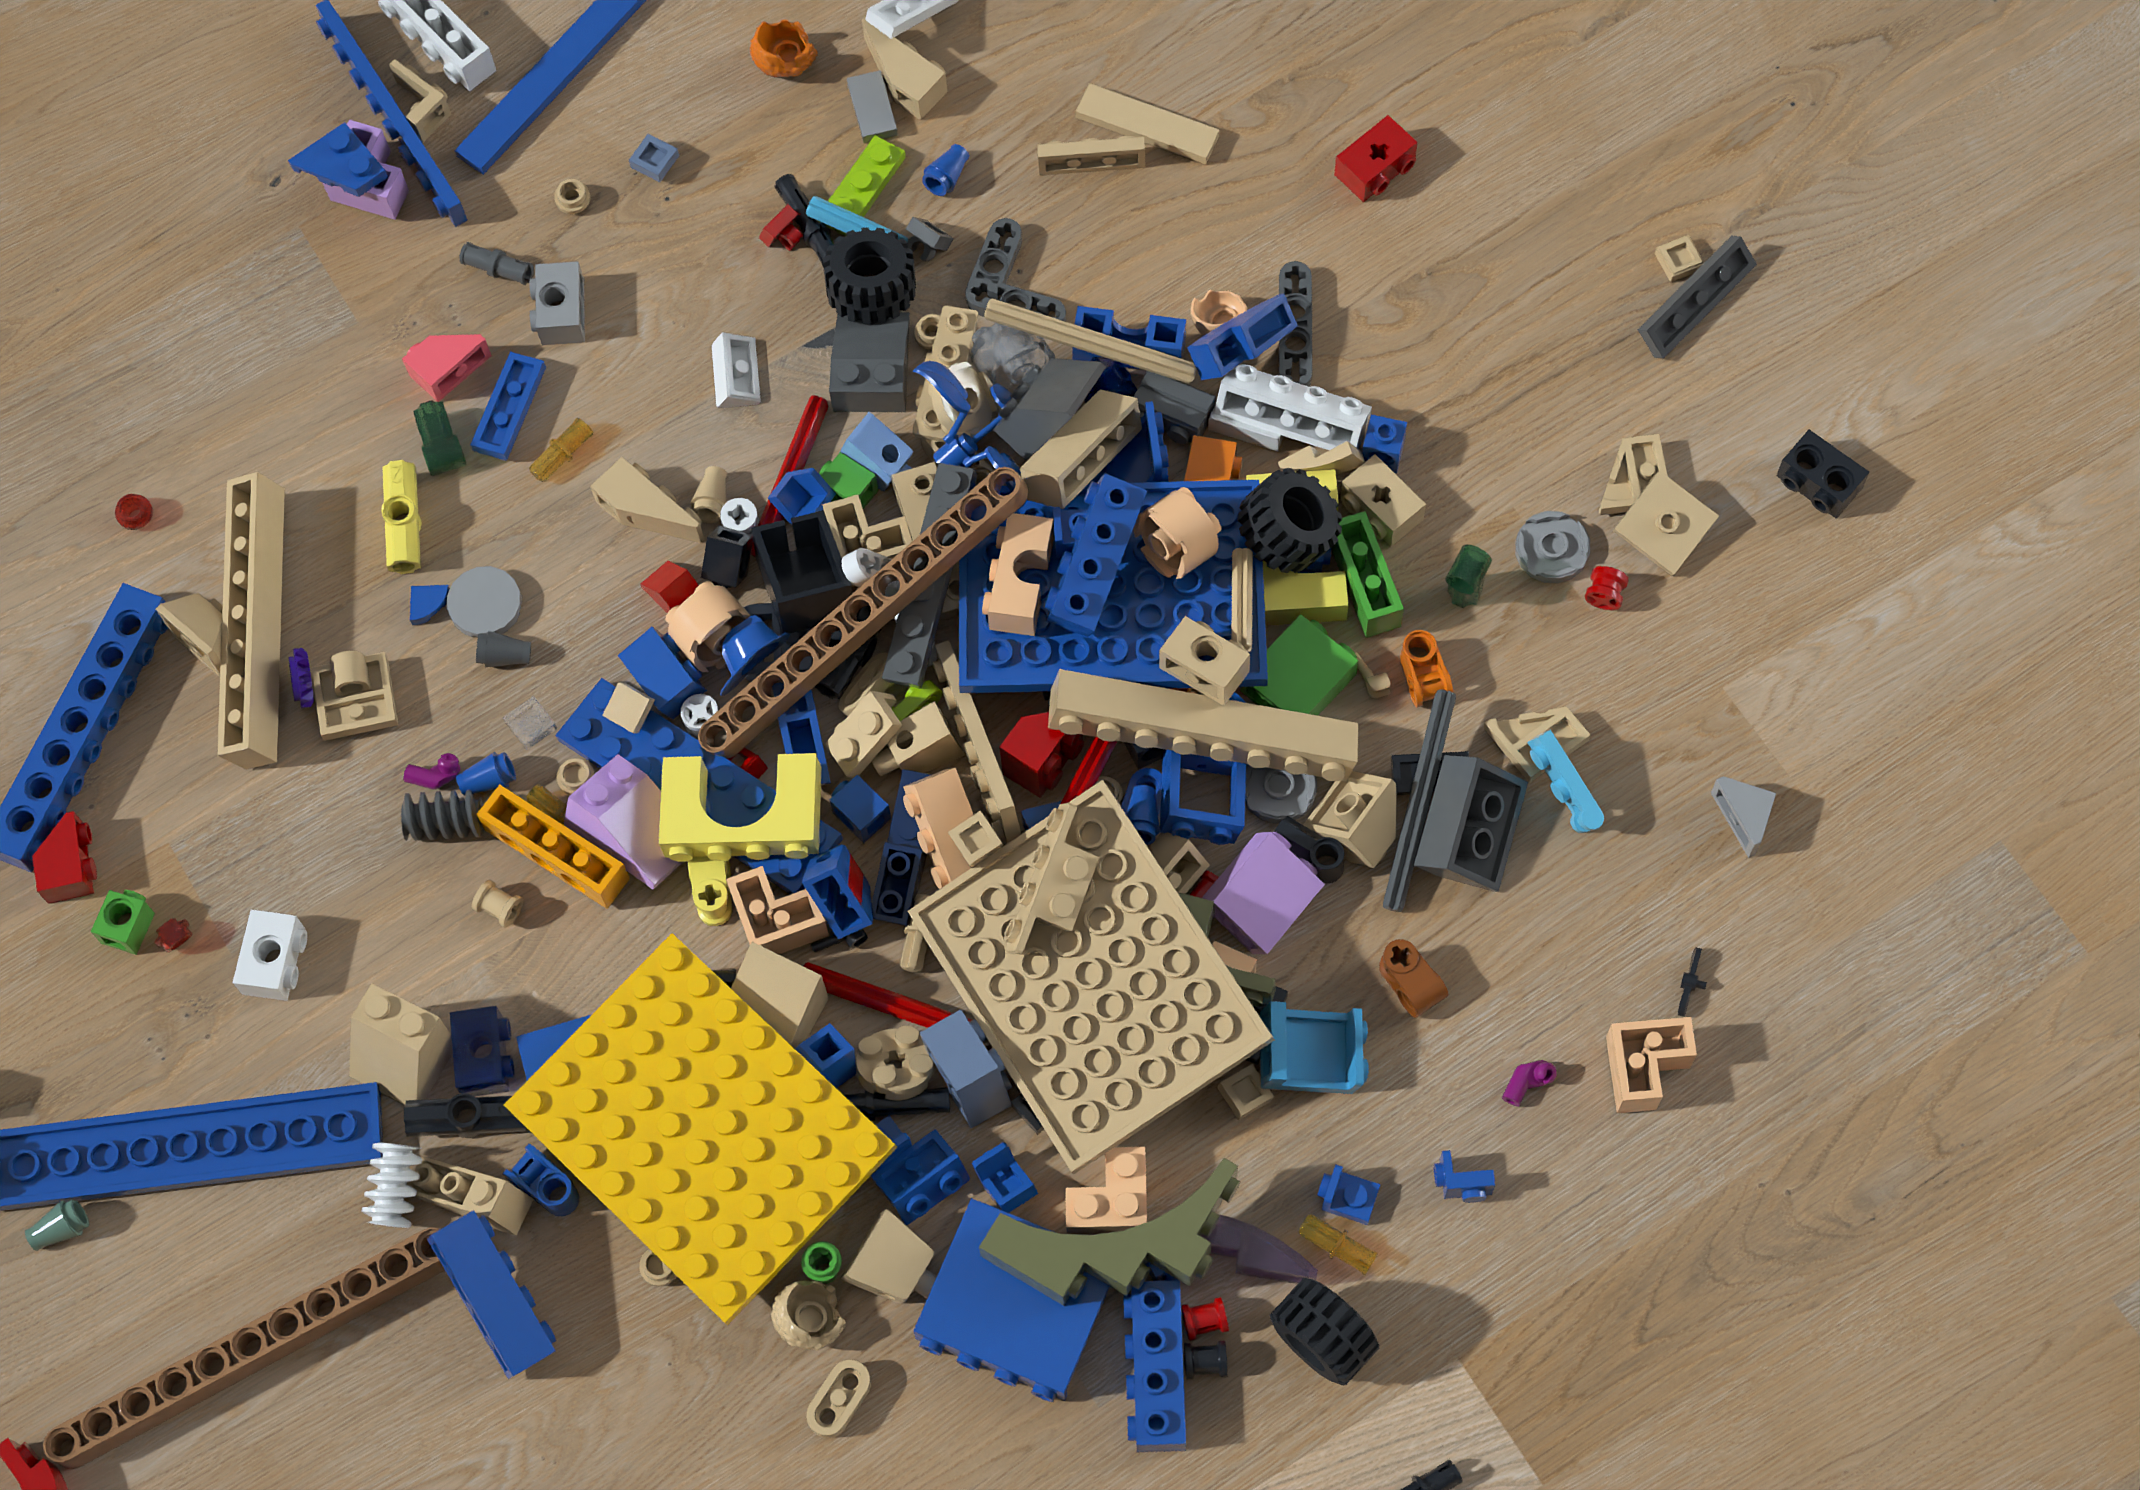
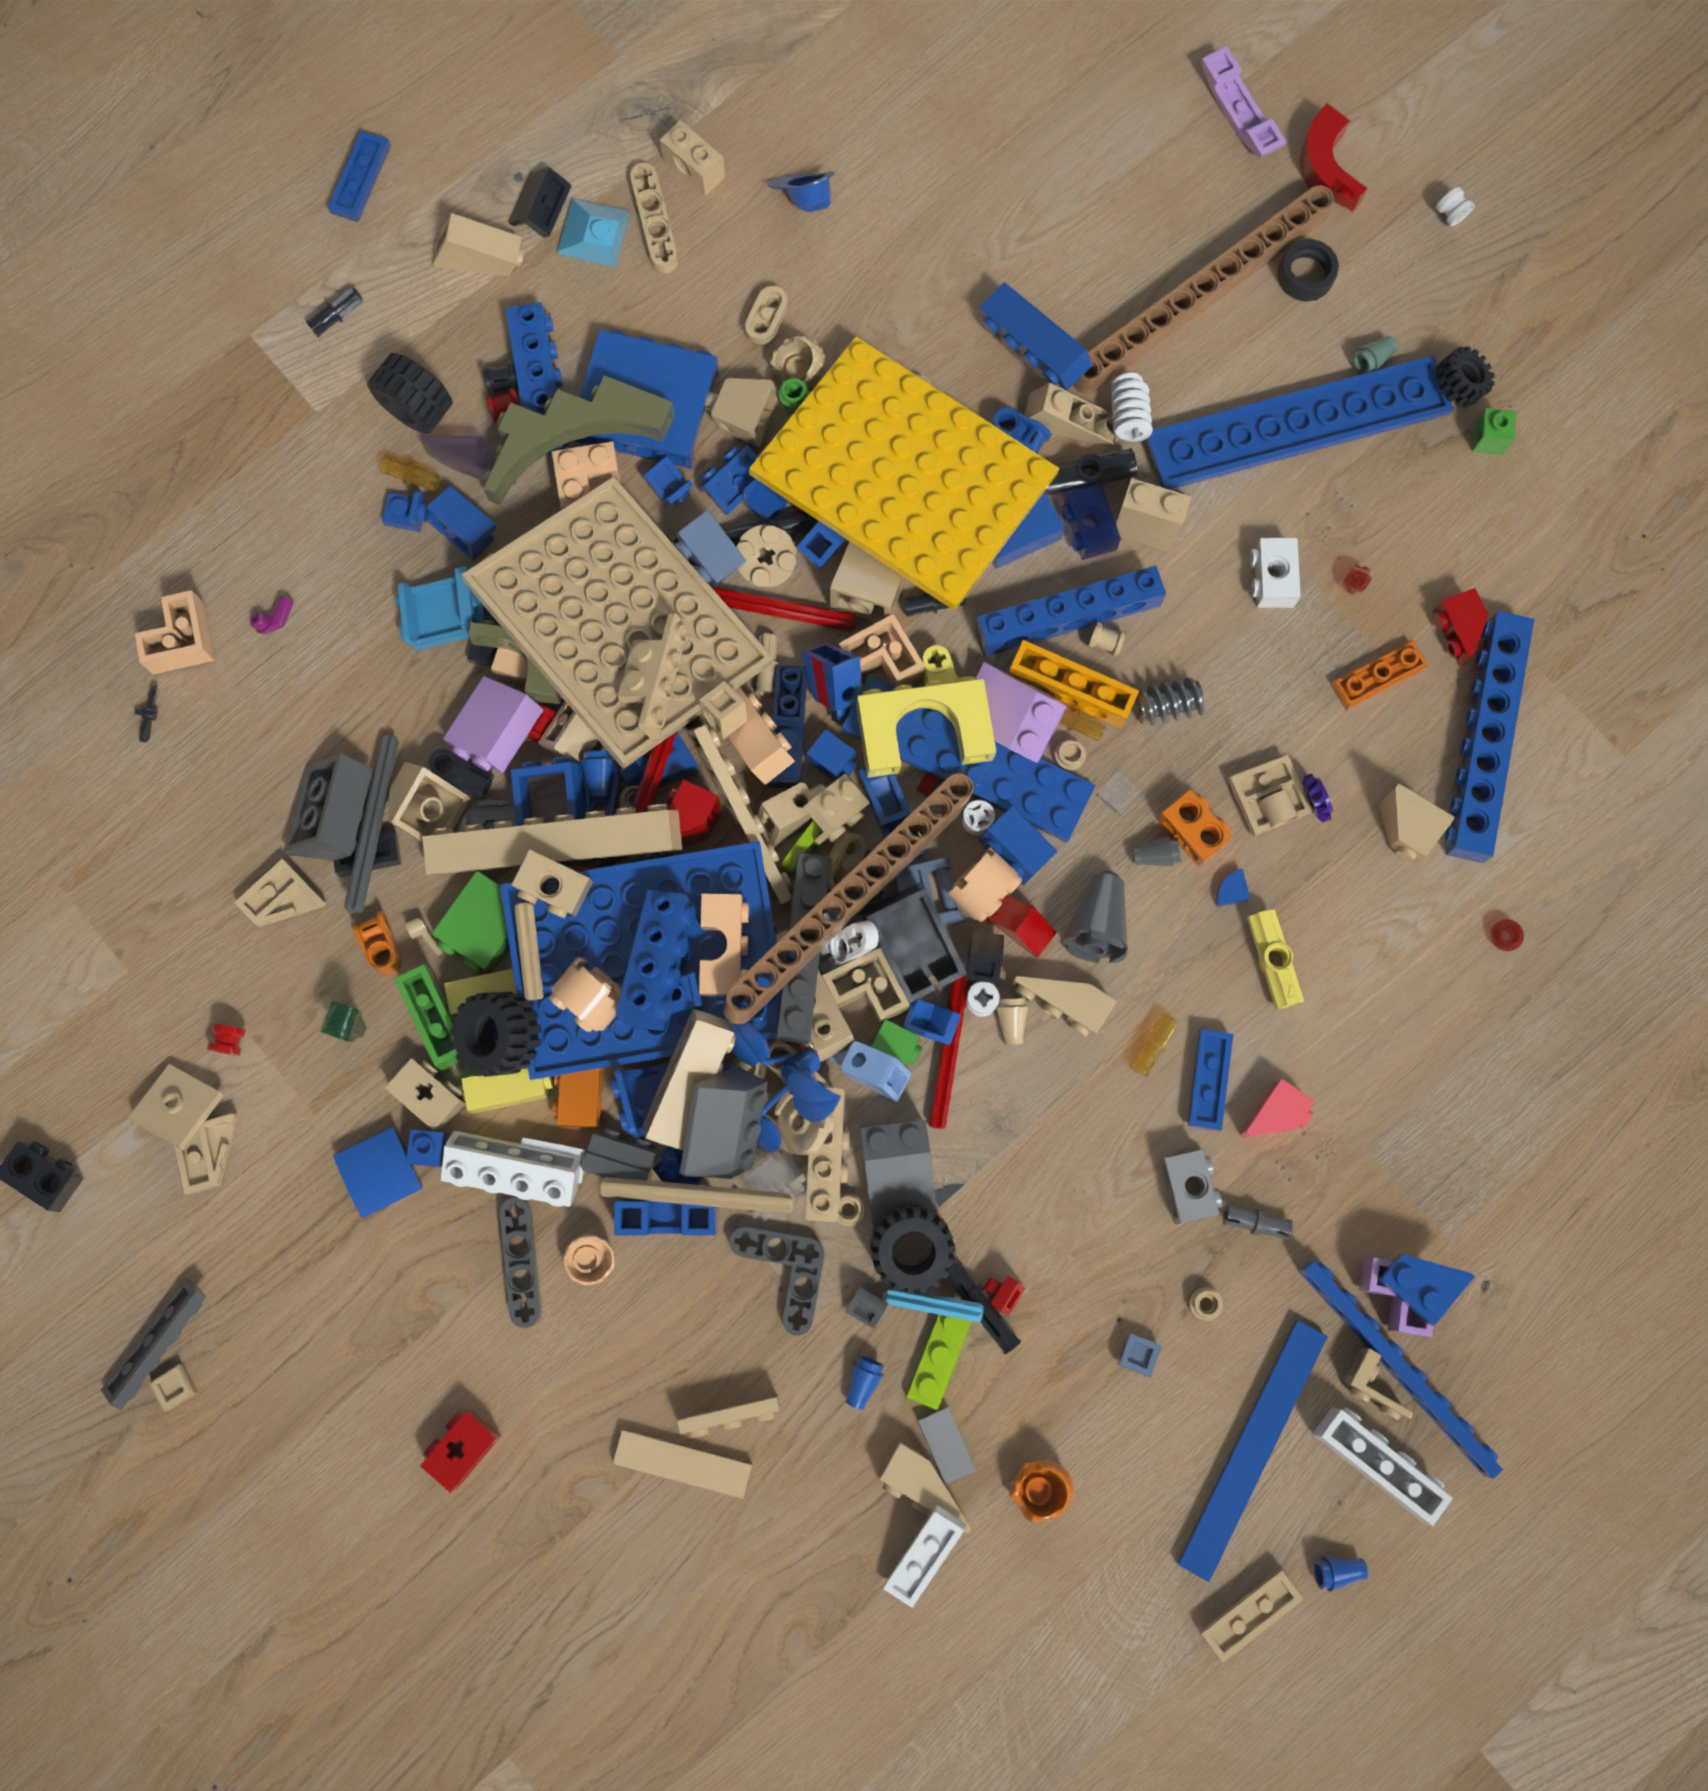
camera: 165 degrees right, 10 degrees up
(86, 1335) = (1314, 250): none -> black tyre
(129, 935) = (1403, 571): bright green brick -> none
(203, 816) = (1365, 682): none -> orange tile
(251, 621) = (1375, 843): tan brick -> none
(435, 777) = (1186, 739): magenta arm -> none
(440, 444) = (1258, 1030): clear green piece -> none
(454, 668) = (1189, 831): none -> orange brick
(484, 601) = (1184, 896): light grey tile -> none
(487, 774) = (1141, 744): blue cone -> none
(533, 940) = (1070, 610): none -> blue brick
(586, 579) = (1100, 921): none -> dark grey cone
(628, 707) = (1037, 804): tan tile -> none
(735, 371) = (1017, 1147): white slope -> none
(746, 647) = (946, 863): blue piece -> none
(1242, 337) = (561, 1227): blue slope -> none
(1277, 1165) = (460, 522): none -> blue hinge
(1341, 458) = (486, 1116): tan slope -> none
(1415, 982) = (368, 679): dark orange piece -> none
(1444, 433) = (377, 1171): none -> blue slope
(1469, 1186) = (317, 527): blue bracket -> none
(1552, 547) = (276, 1078): light grey tile -> none
(1566, 782) = (250, 851): medium azure plate -> none
(1745, 810) = (101, 855): light grey slope -> none

